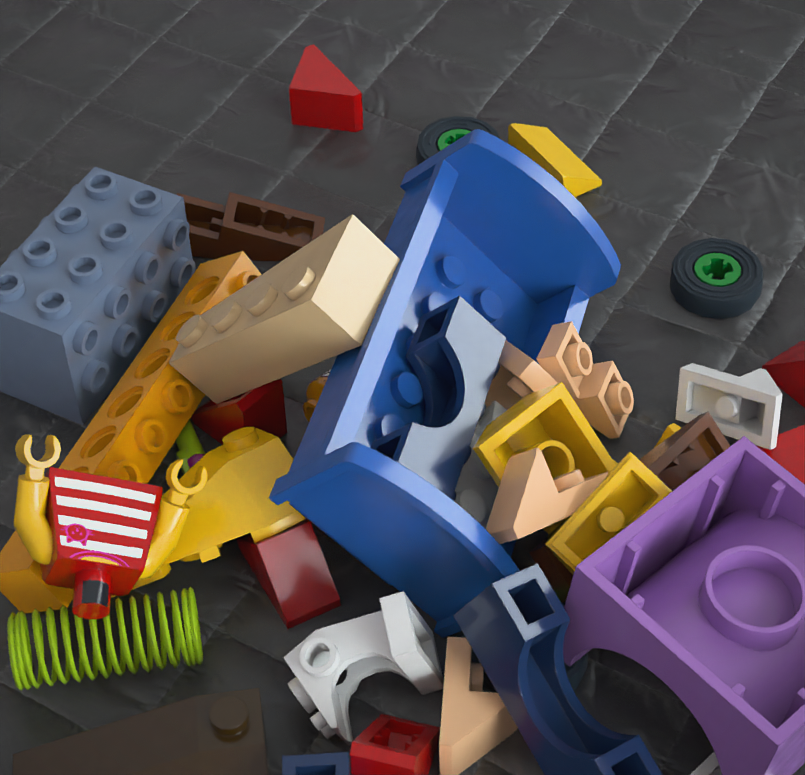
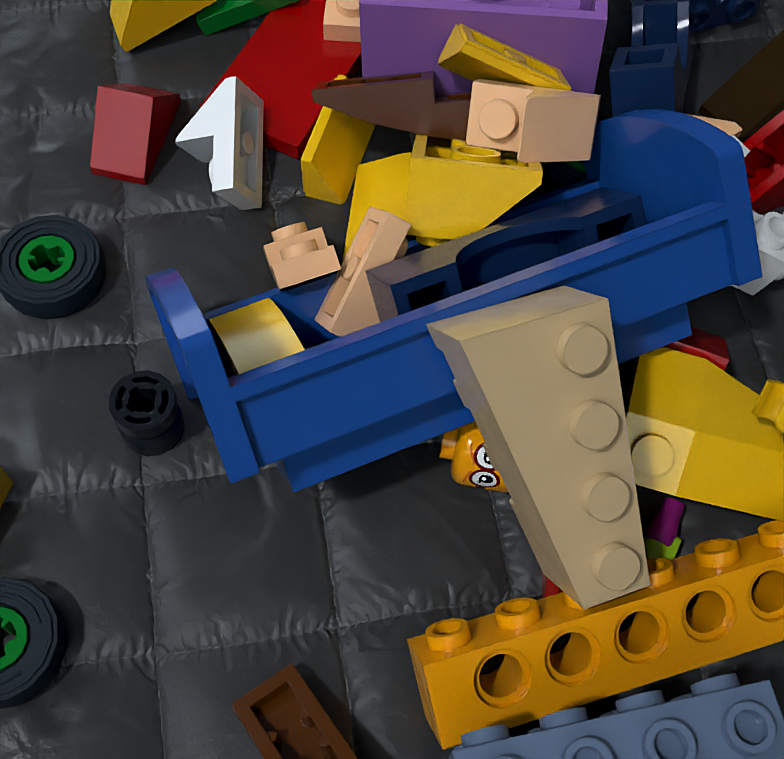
camera: 135 degrees left, 15 degrees up
(506, 281) = (255, 335): none -> yellow slope

